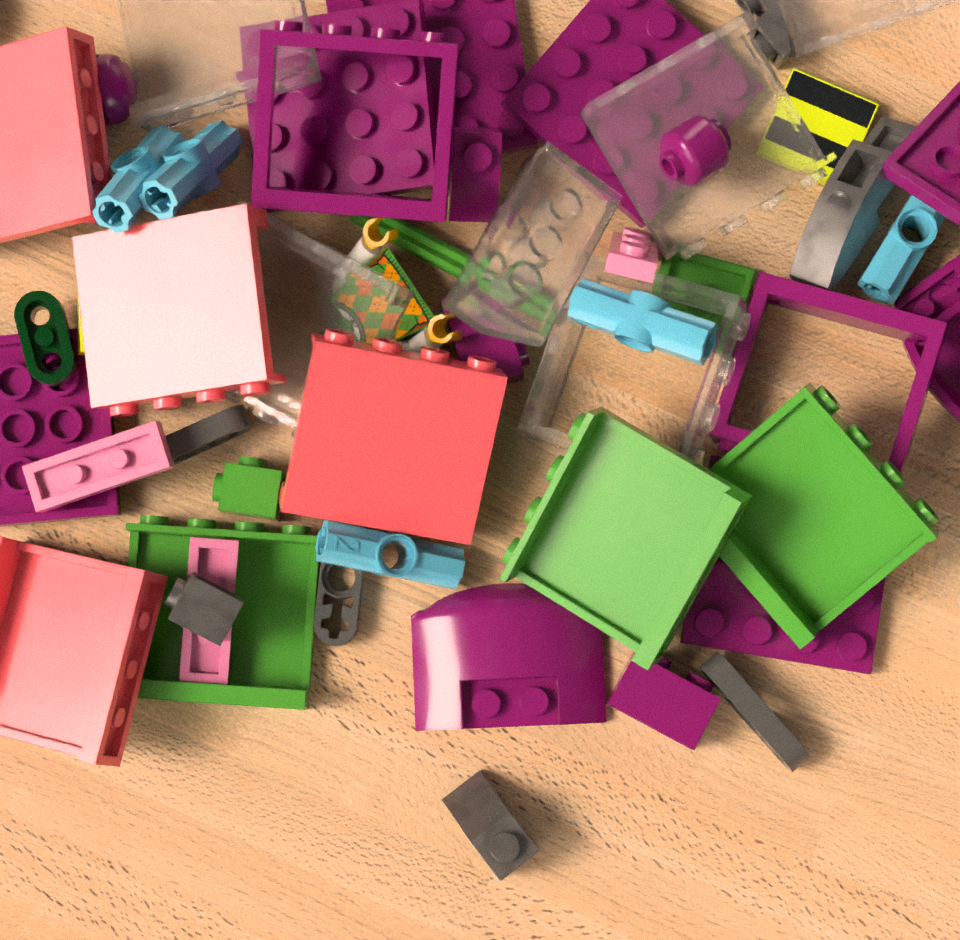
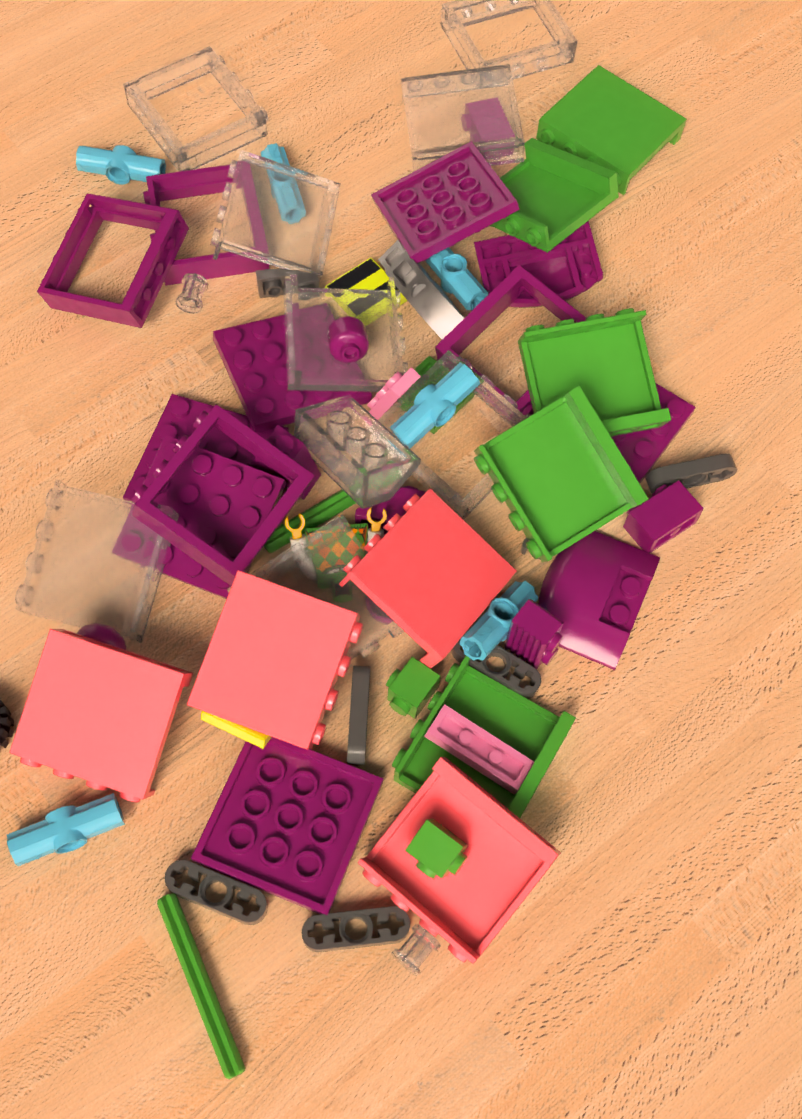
camera: 70 degrees left, 20 degrees down
(45, 340) = (242, 761): dark green plate -> none
(52, 620) = (437, 850): none -> bright green brick
(98, 466) = (348, 768): bright pink plate -> none
(118, 202) = (174, 646): medium azure piece -> none
(190, 170) = (188, 612): medium azure piece -> none
(203, 607) = (481, 740): flat silver brick -> none
(388, 608) = (534, 635): none -> magenta brick
(490, 825) = (700, 648): flat silver slope -> none

